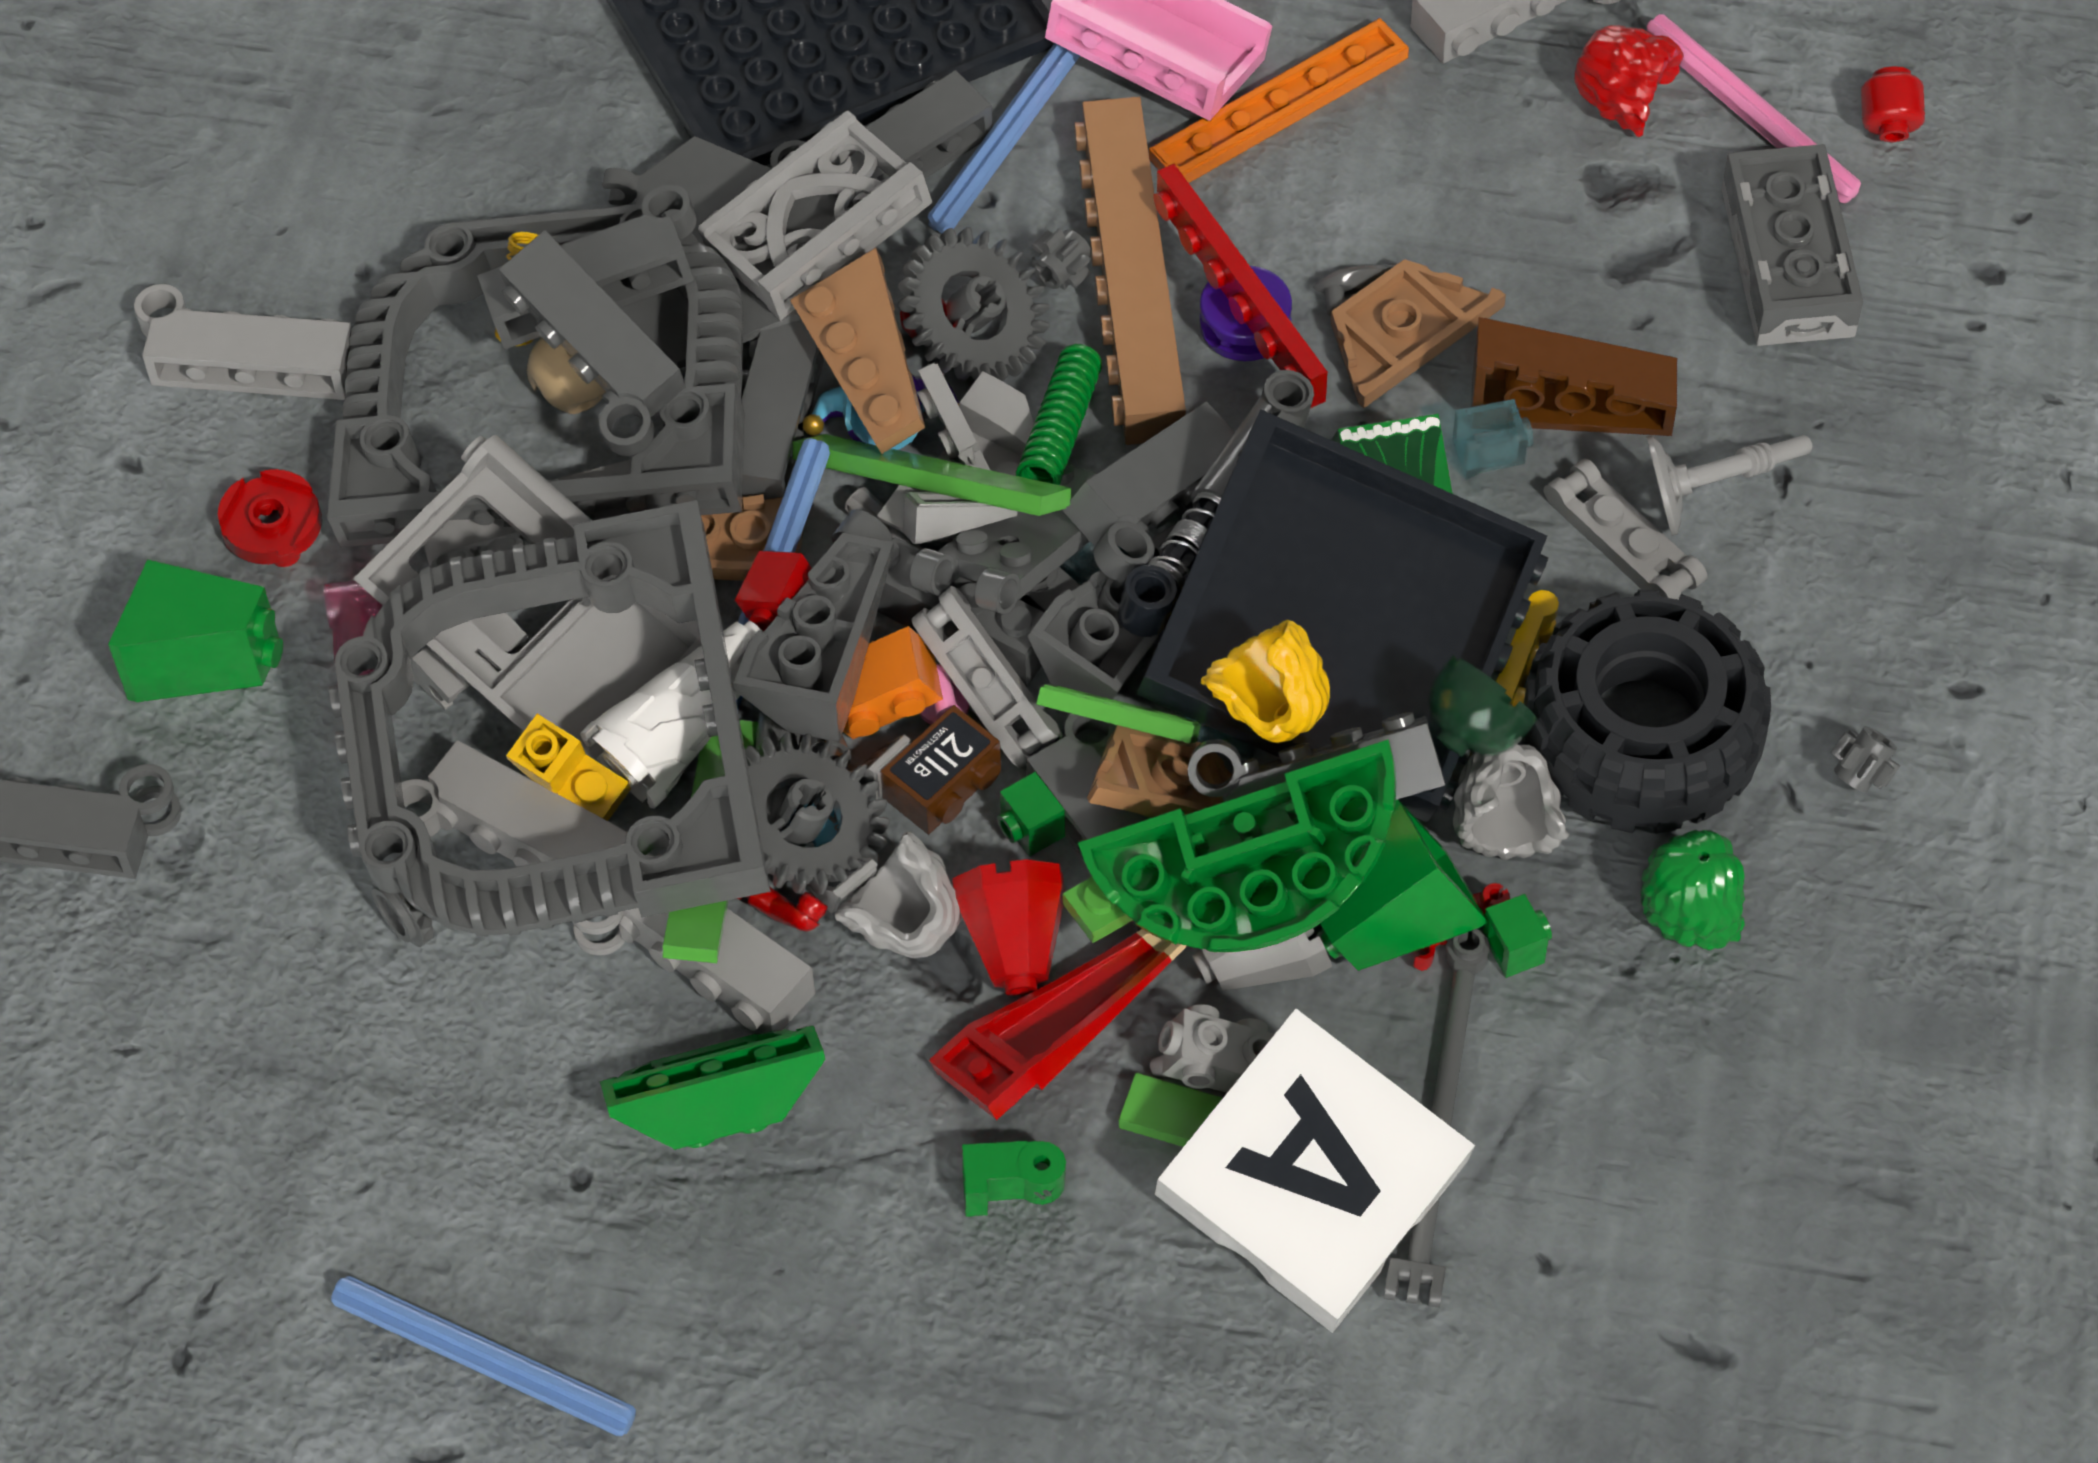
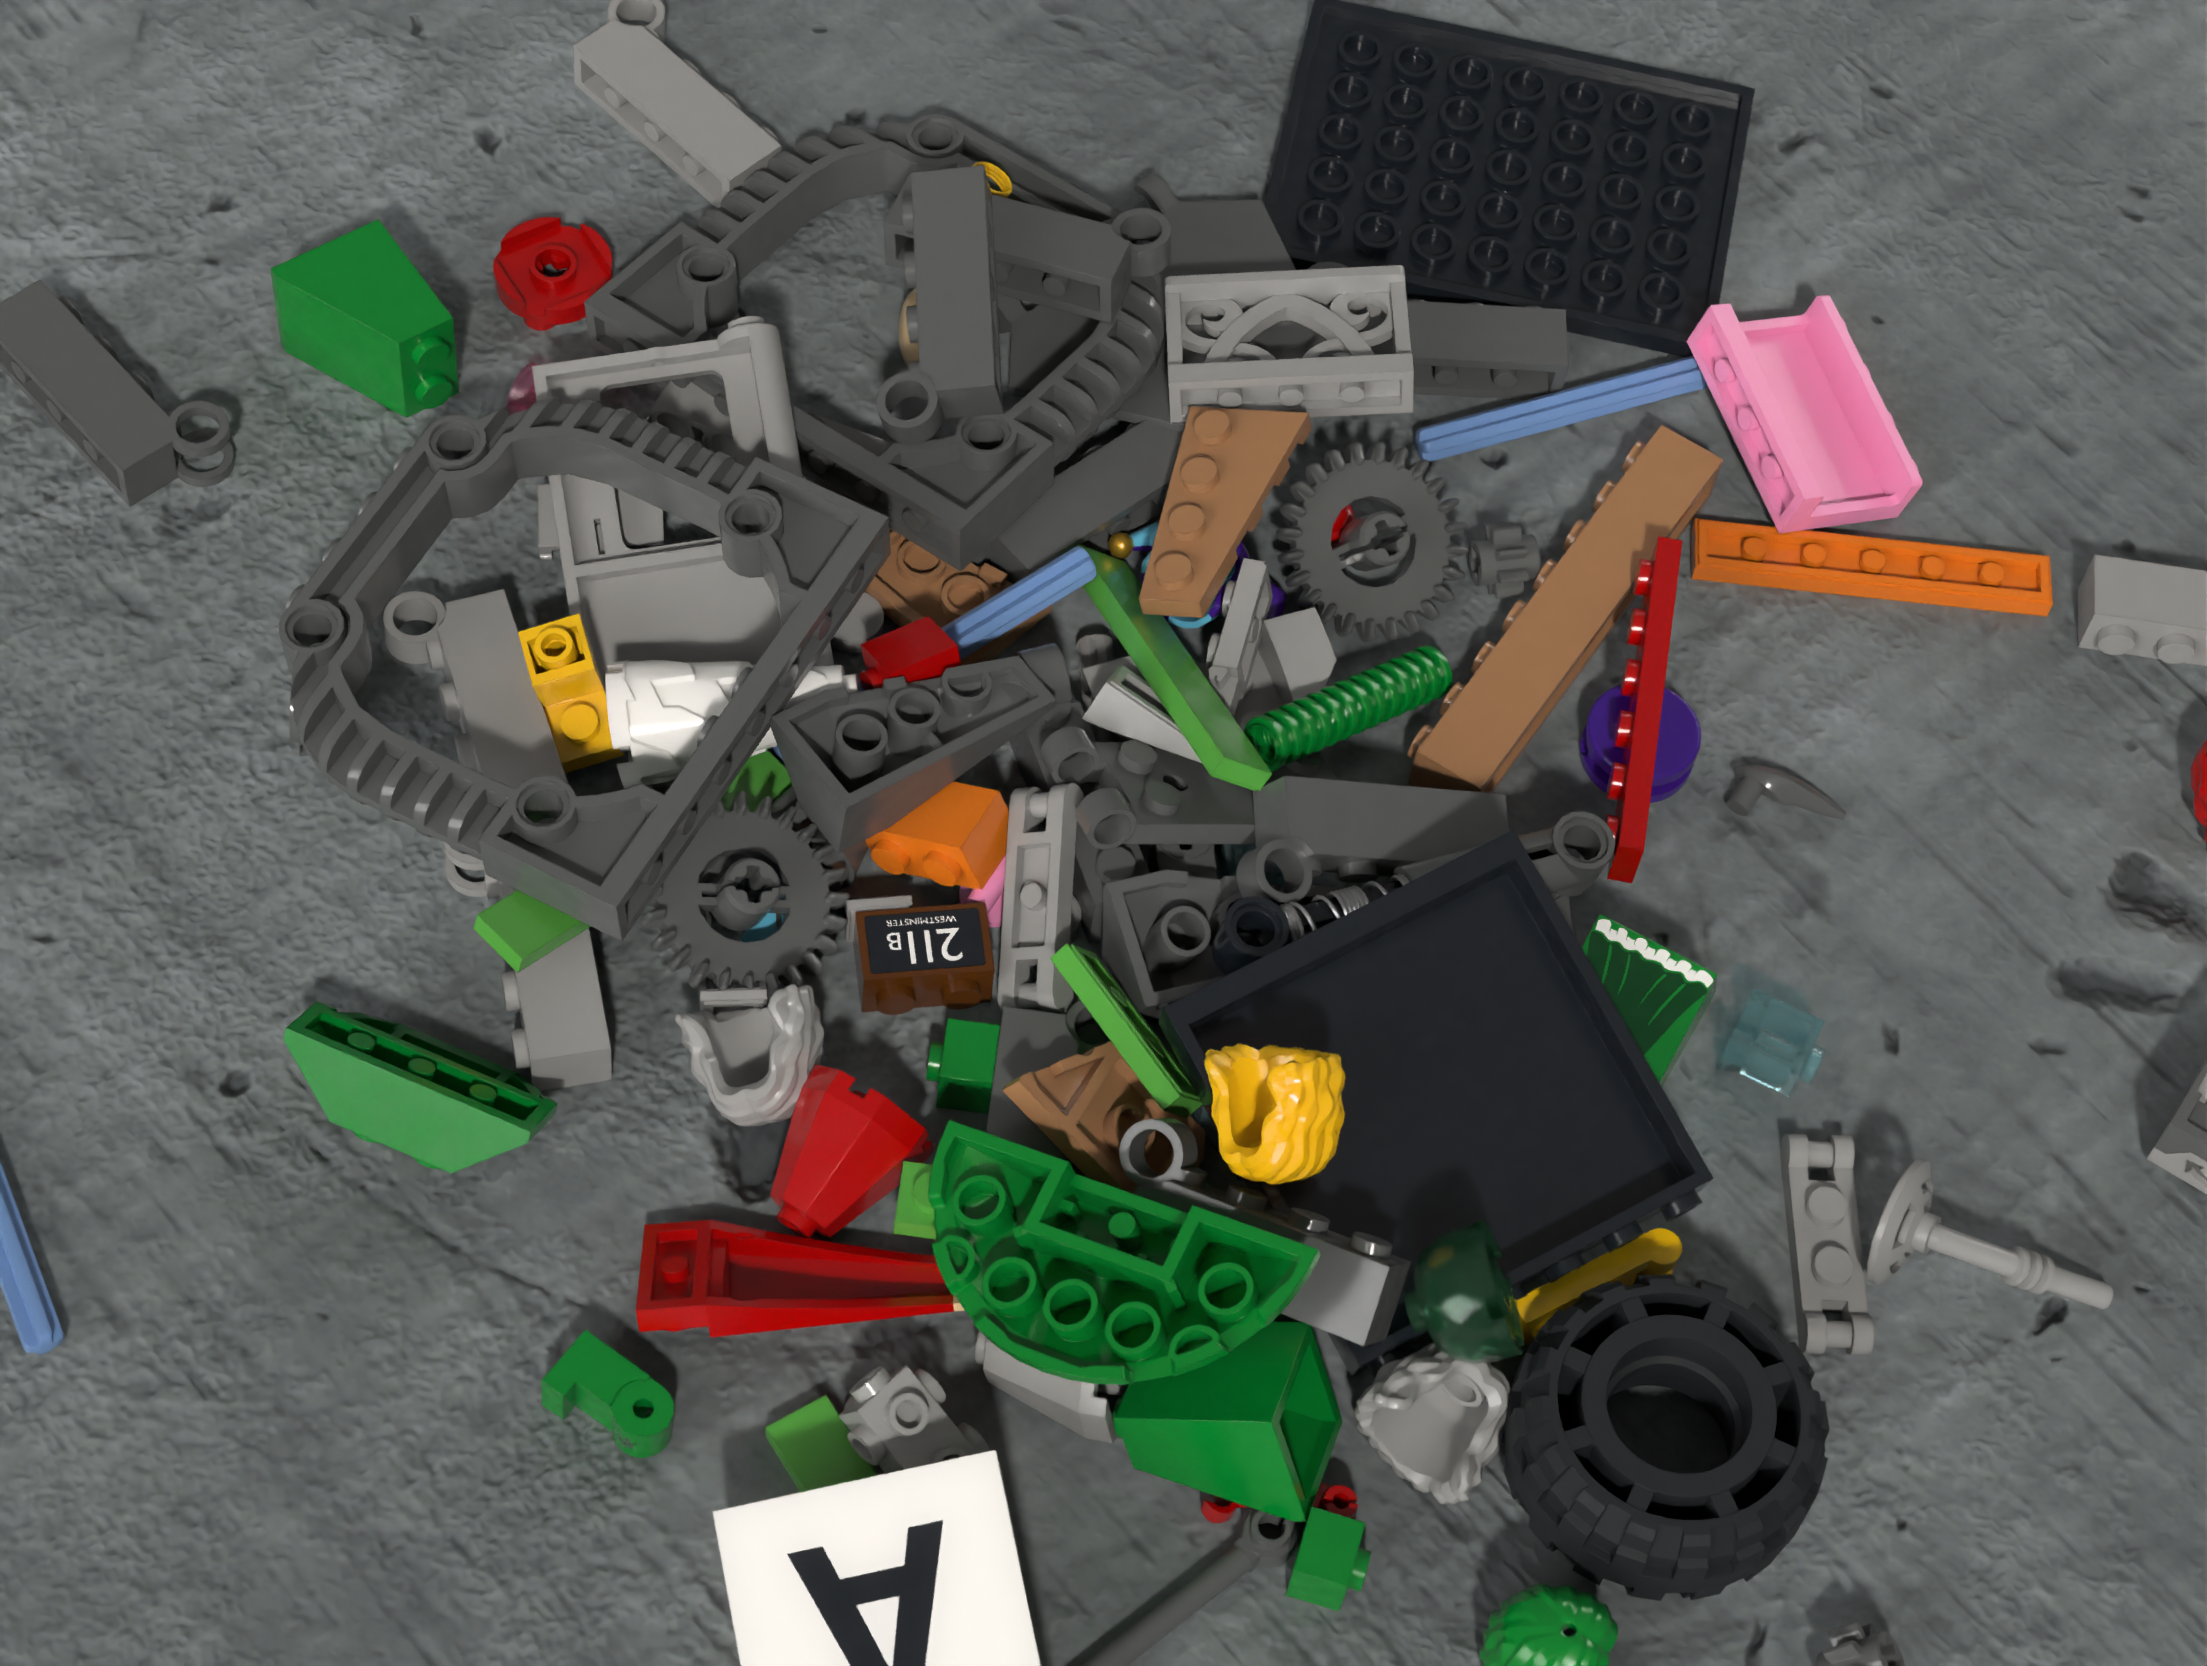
camera: 30 degrees right, 0 degrees up
(801, 916) = (657, 987): red arm -> none
(1404, 324) = (1793, 869): medium nougat wing -> none
(1574, 381) = (1906, 1049): reddish brown wedge -> none

